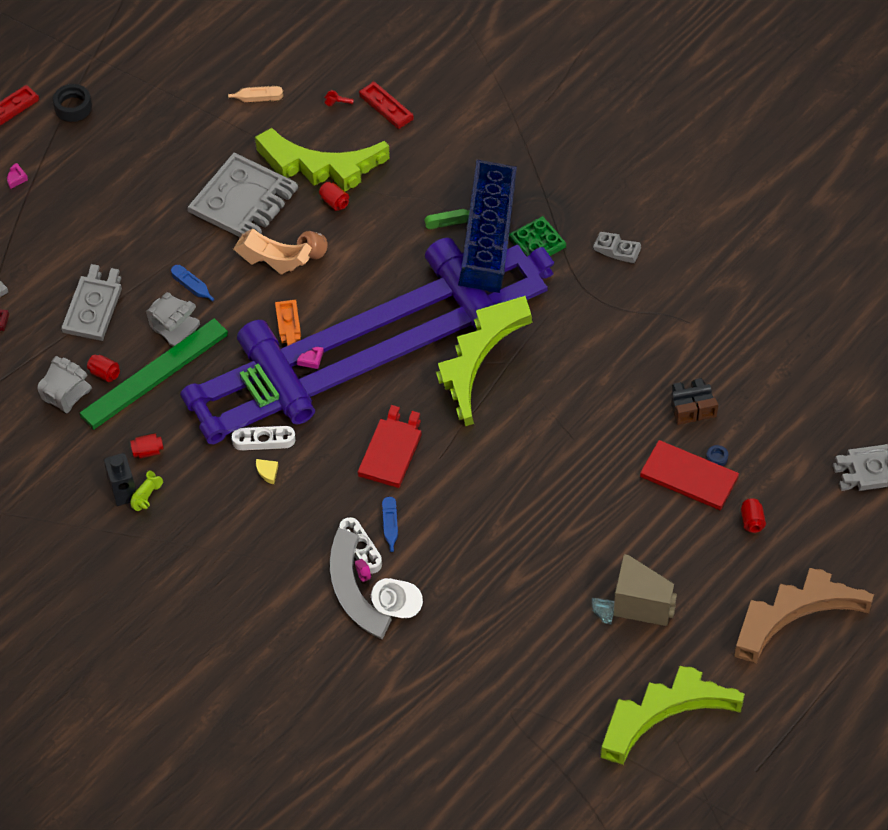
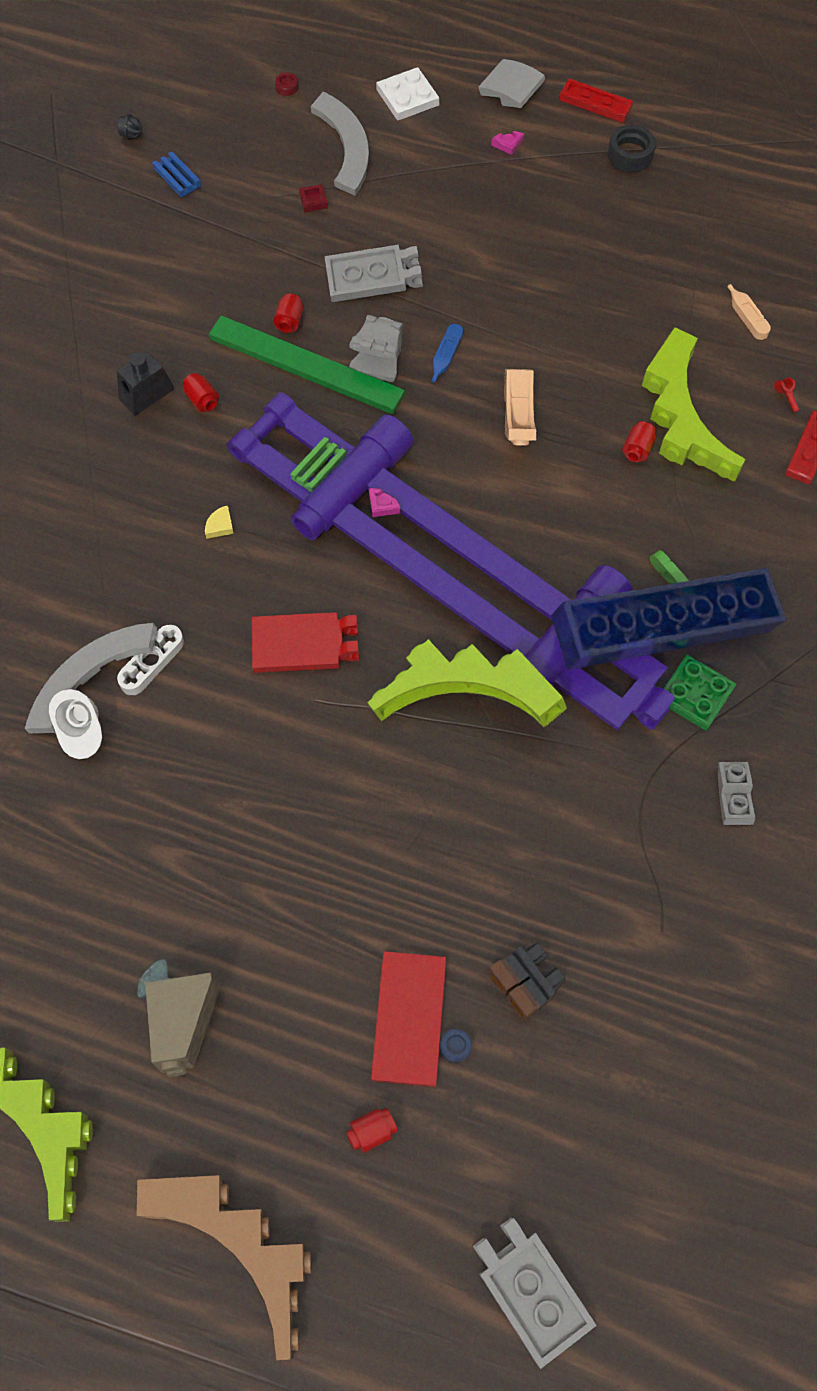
camera: 65 degrees right, 10 degrees up
(63, 384) = (241, 284): light grey piece -> none
(140, 498) = (131, 413): lime piece -> none
(242, 194) = (591, 349): light grey hinge -> none
(279, 443) = (261, 513): white beam -> none
(288, 321) = (433, 465): orange hinge -> none
(316, 241) = (552, 444): nougat head -> none
(363, 570) = (106, 673): dark pink tile -> none
(390, 521) = (197, 679): blue piece -> none

